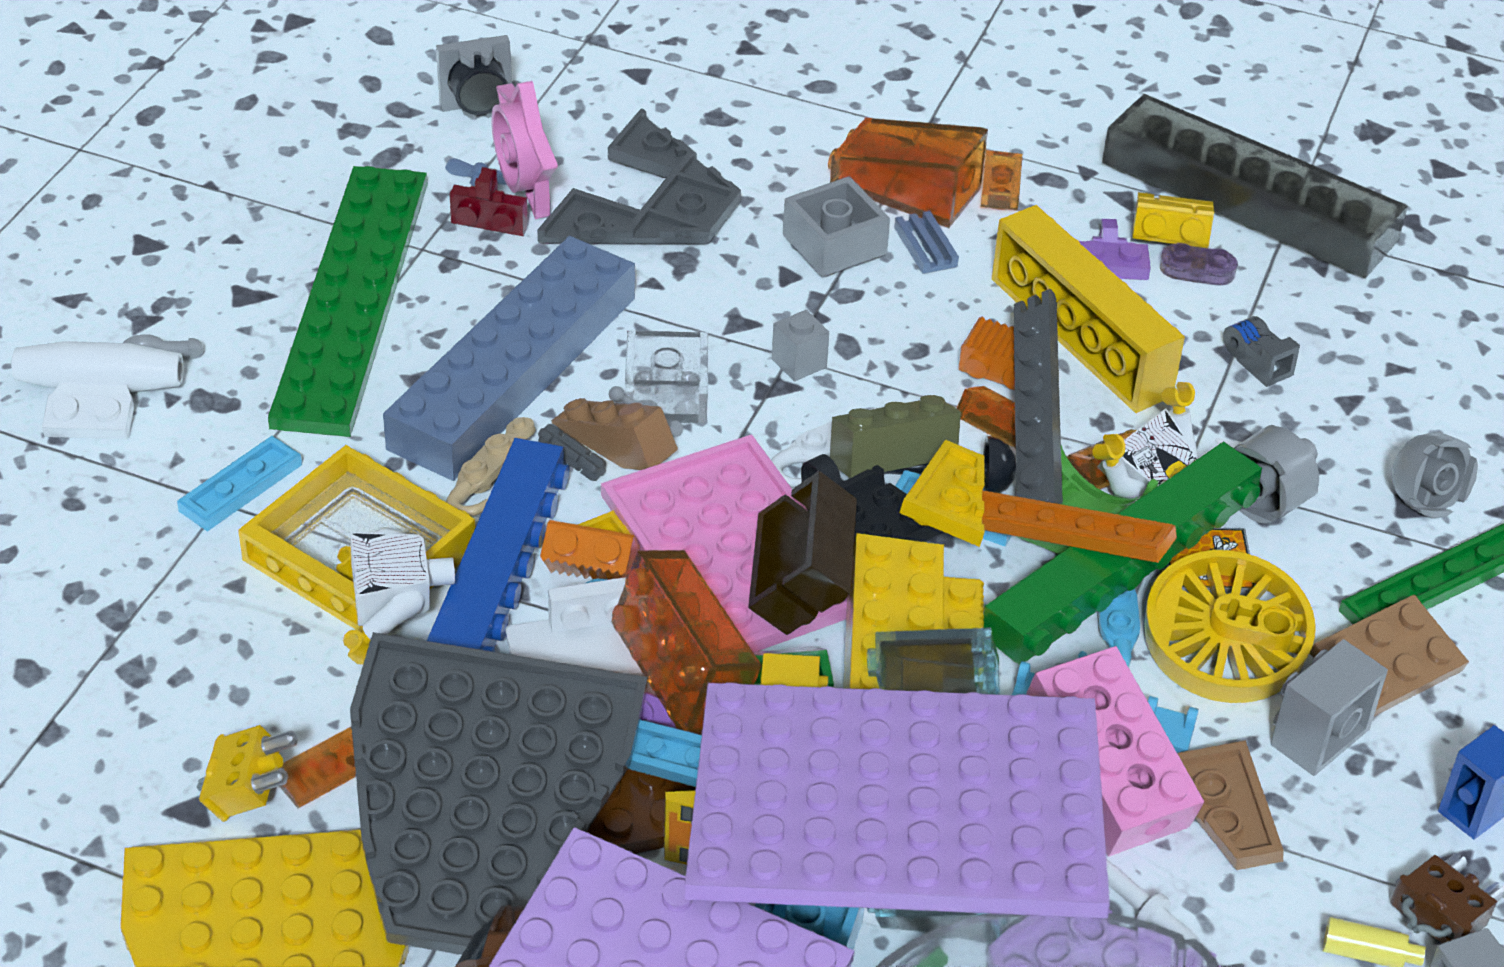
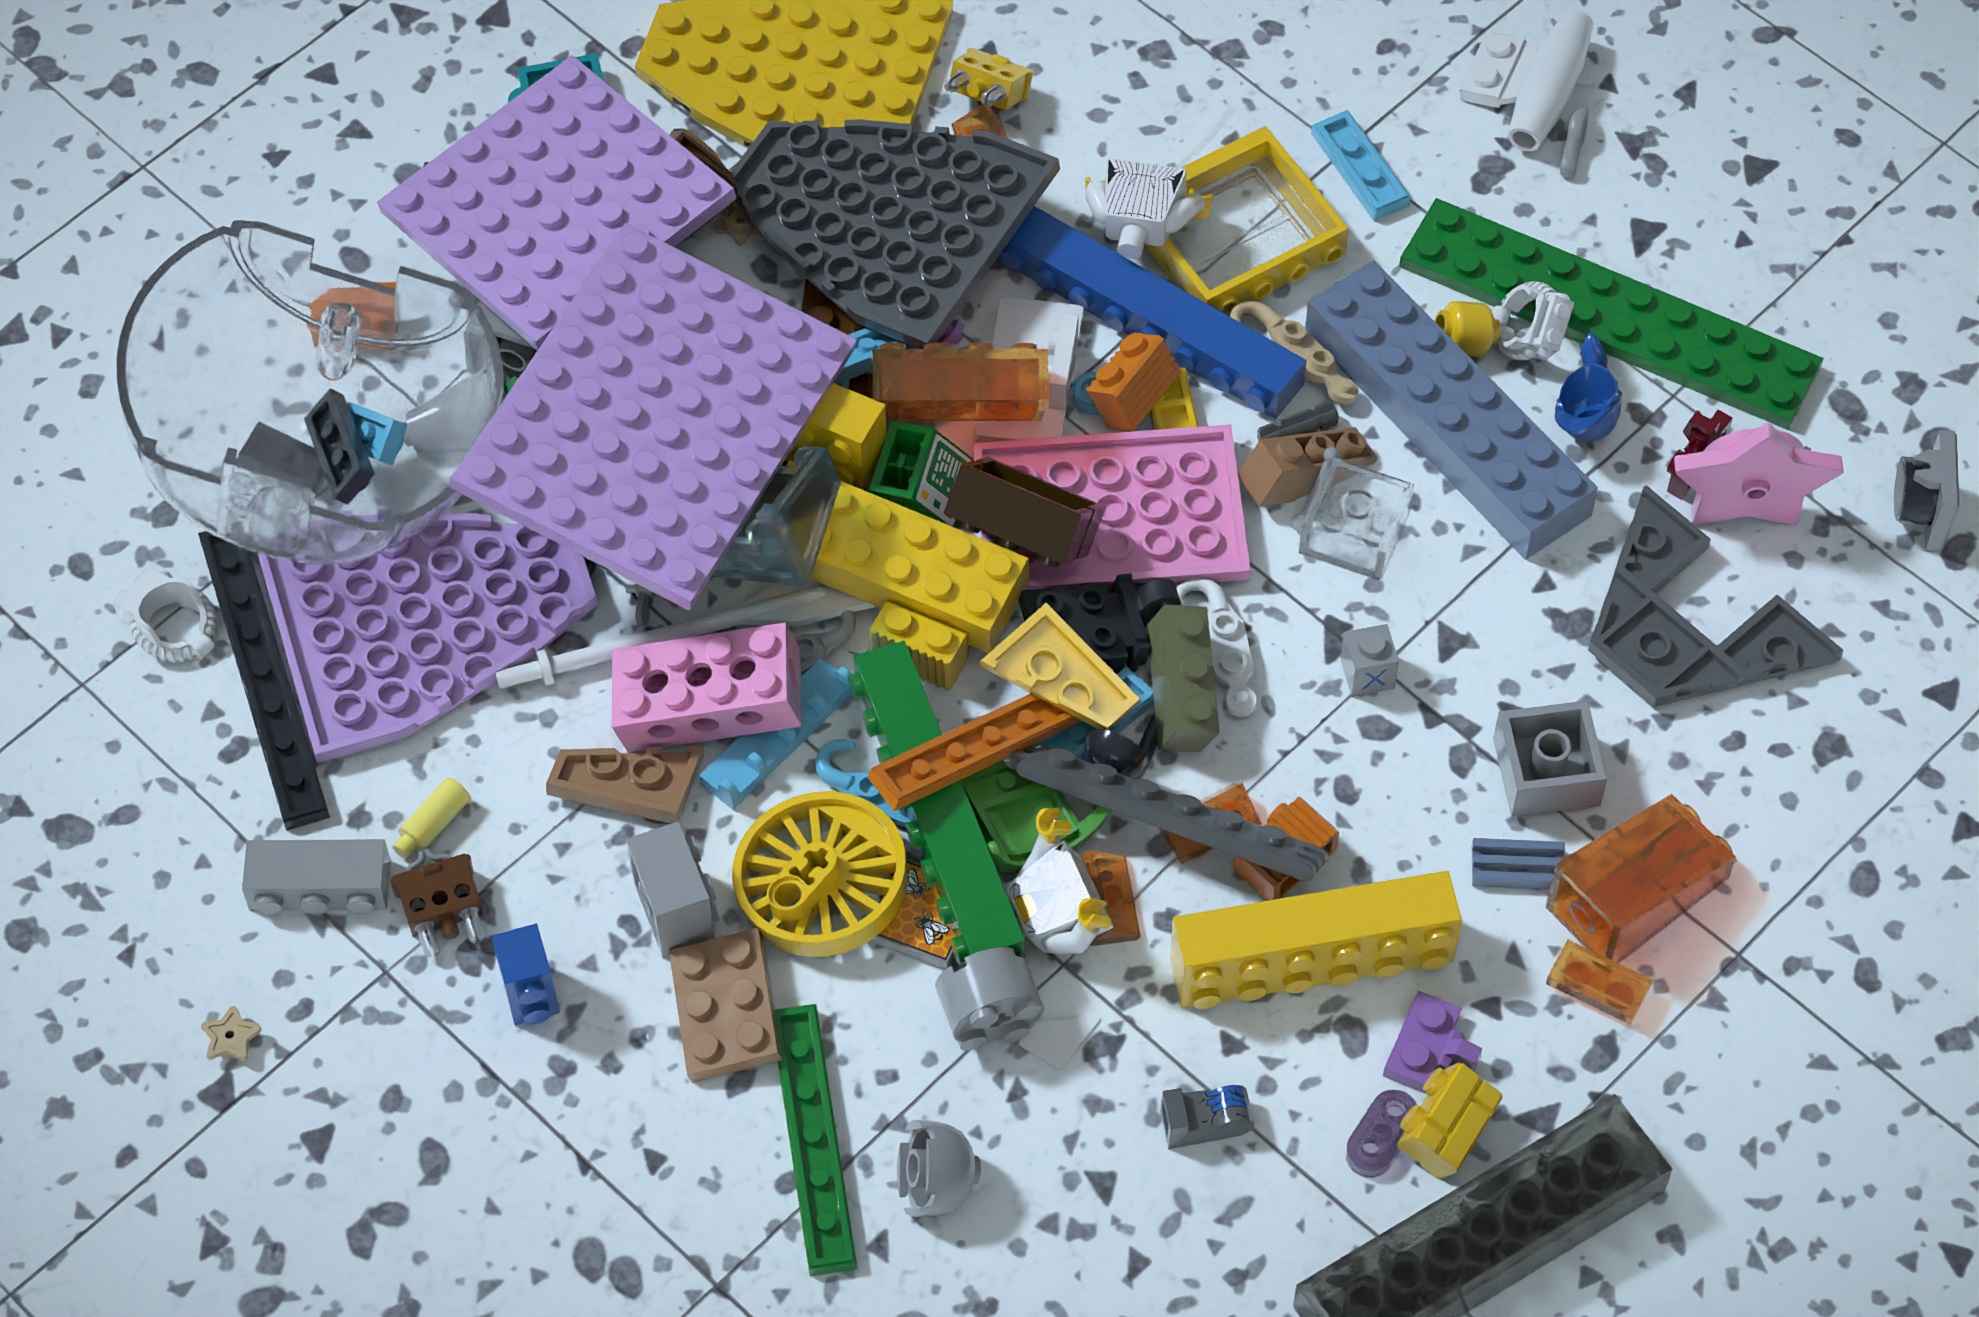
camera: 115 degrees right, 15 degrees up
(406, 285) = (1547, 328): none -> white piece
(414, 357) = (1470, 326): none -> yellow head
(471, 268) = (1589, 396): none -> blue hair

